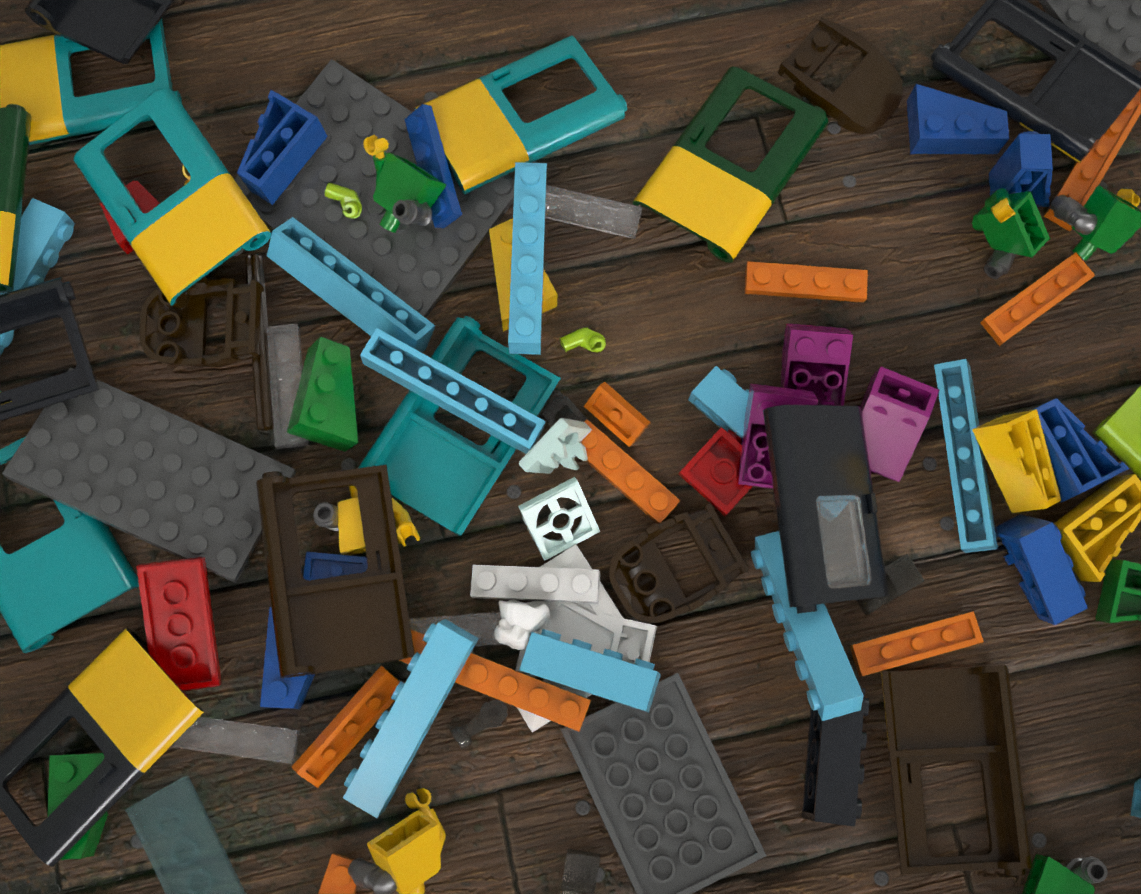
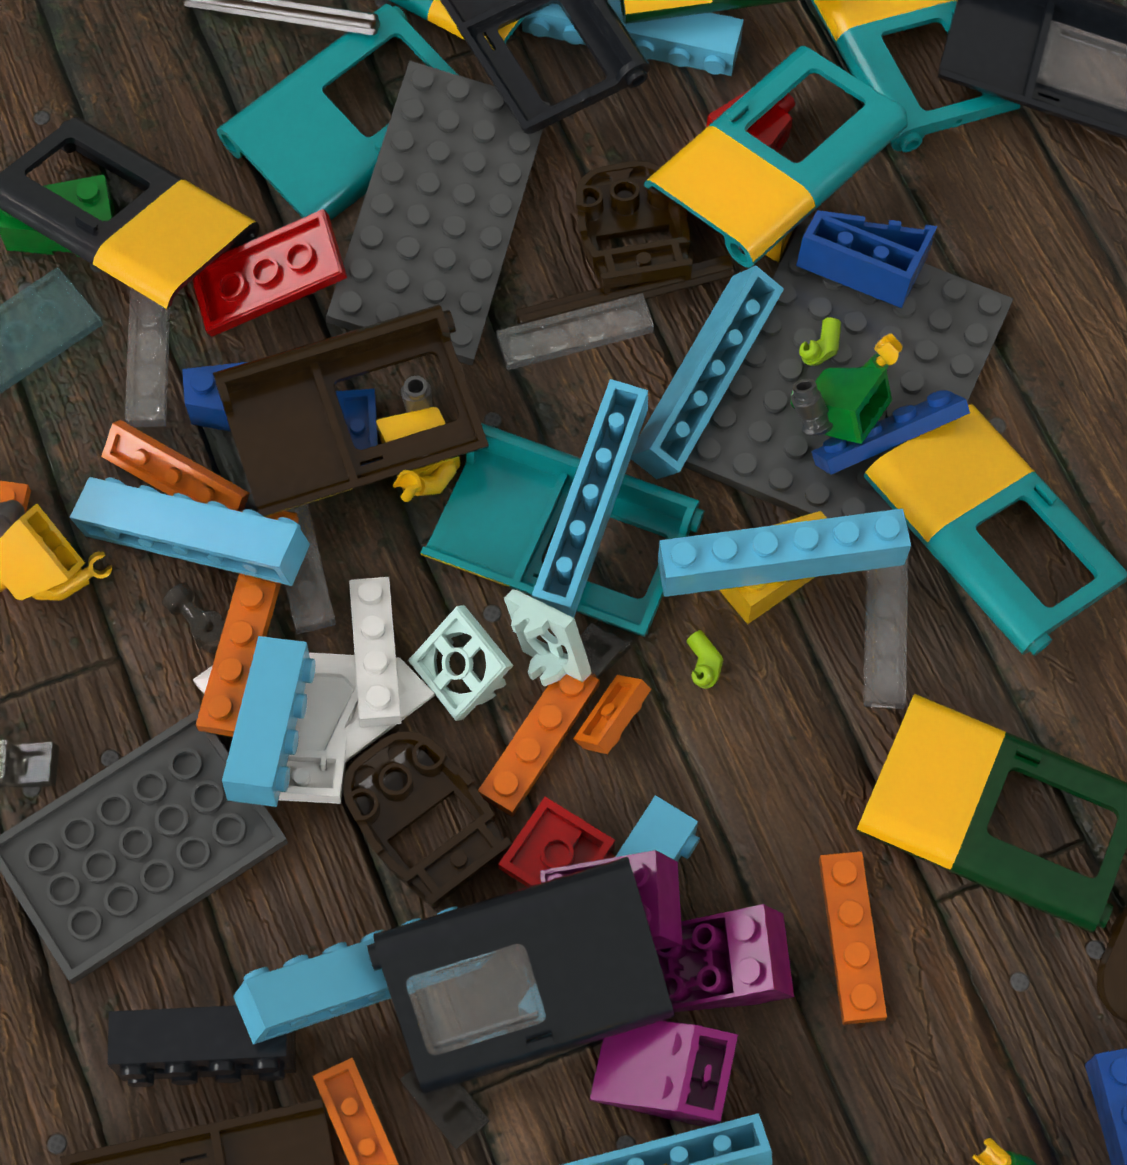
camera: 85 degrees right, 10 degrees down
(325, 397) = (564, 369): green wedge -> none
(518, 622) = (325, 632): white hair -> none

